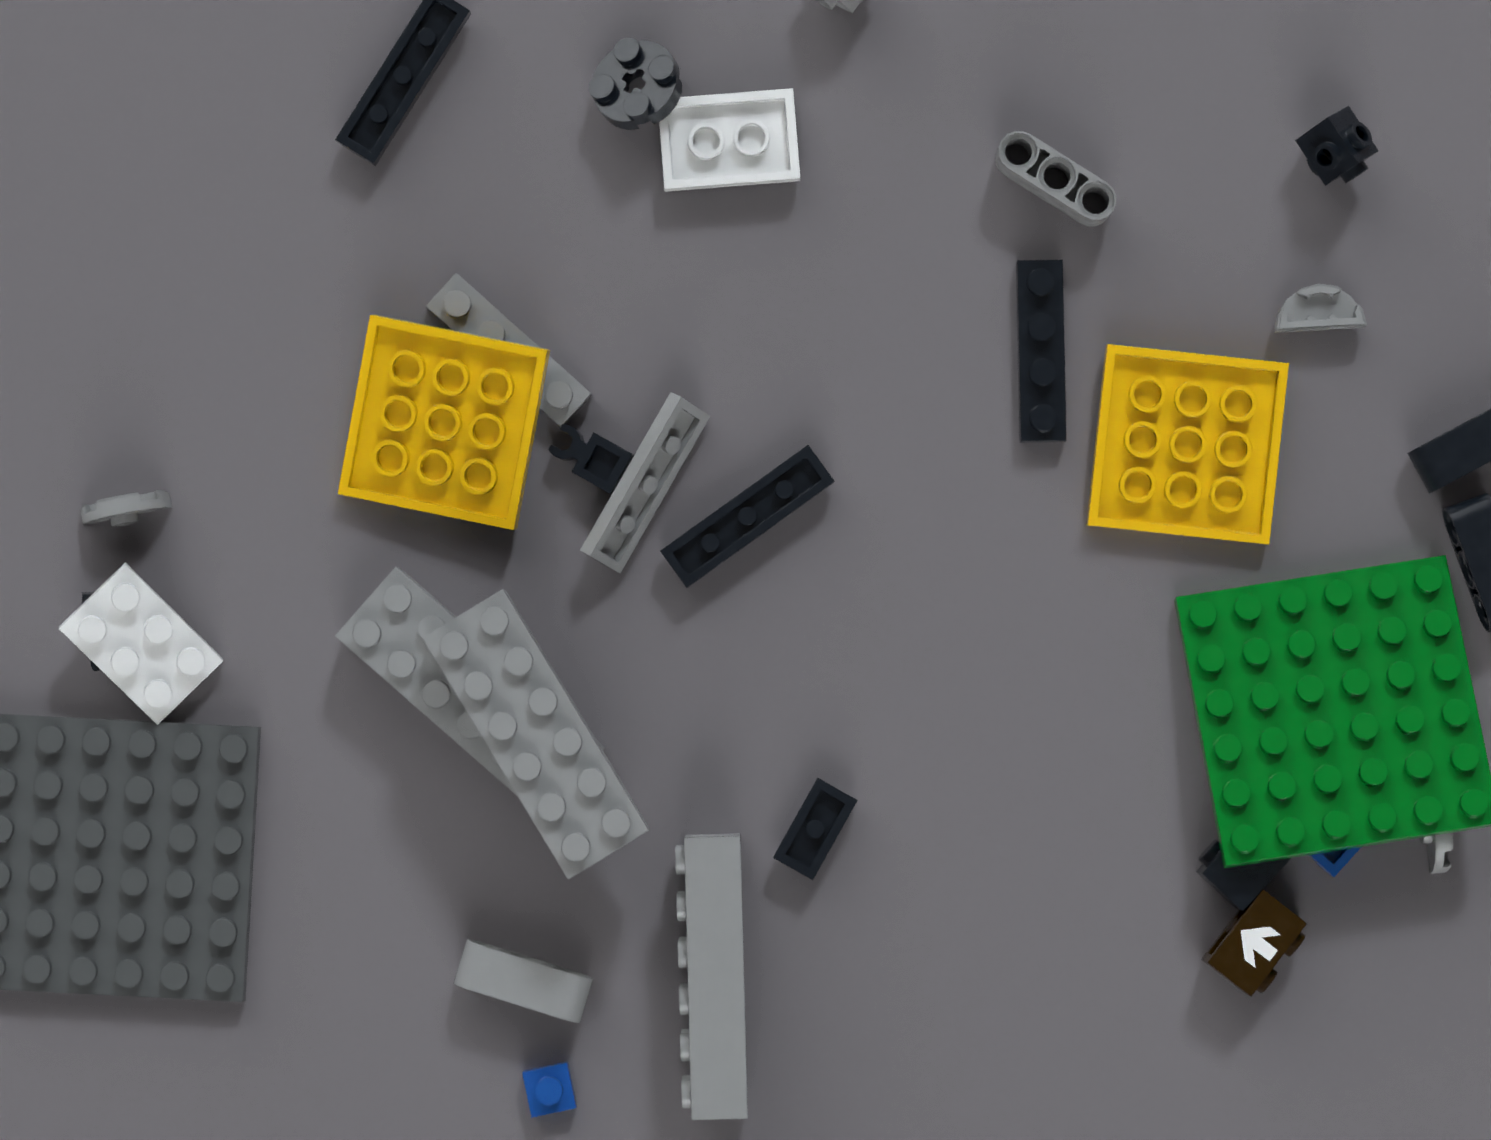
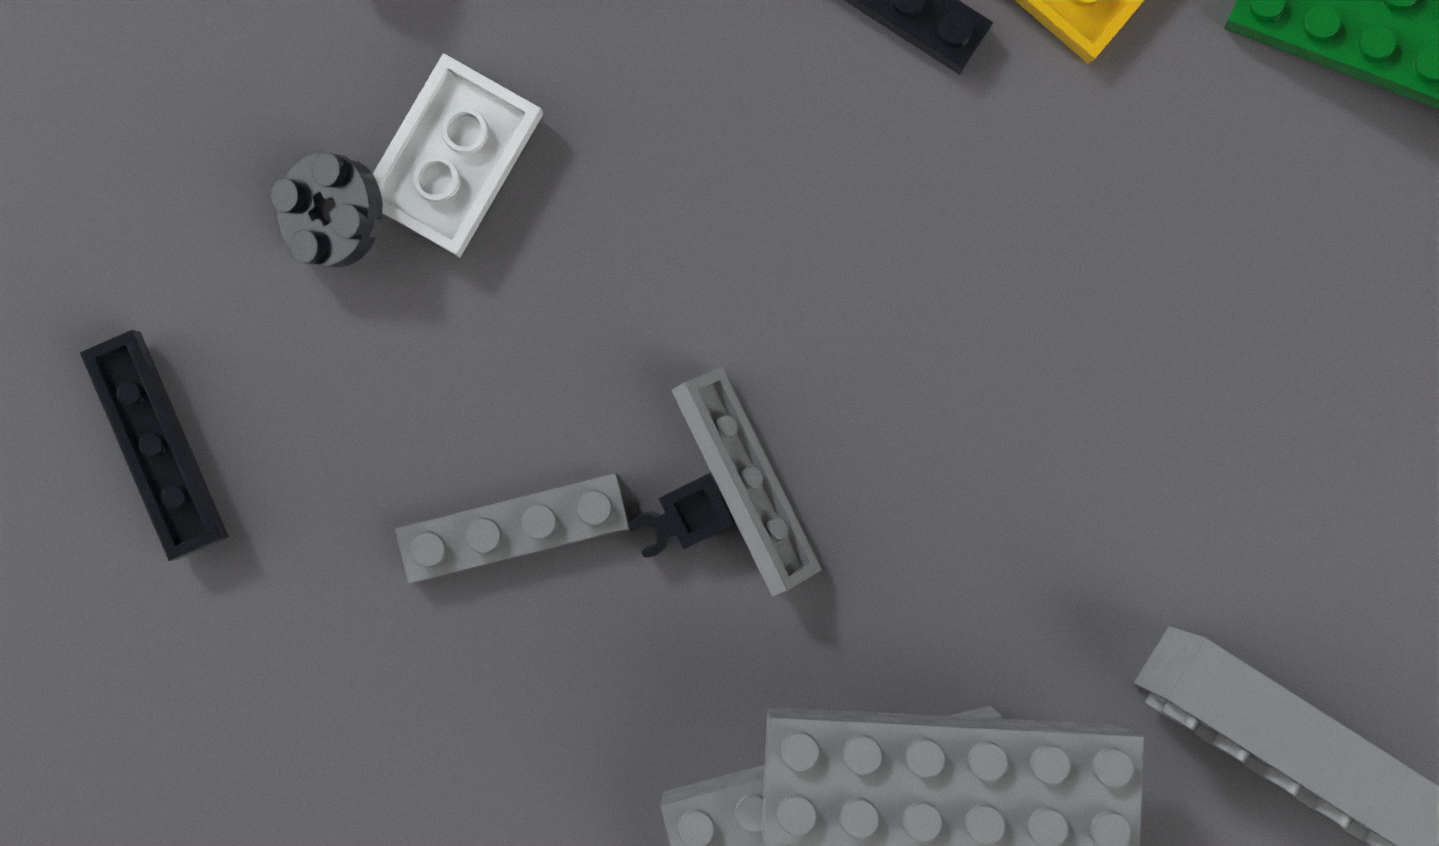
camera: 55 degrees left, 0 degrees up
(443, 422) = (541, 647): yellow plate -> none
(747, 516) = (852, 398): black plate -> none
(815, 828) = (1221, 547): black plate -> none

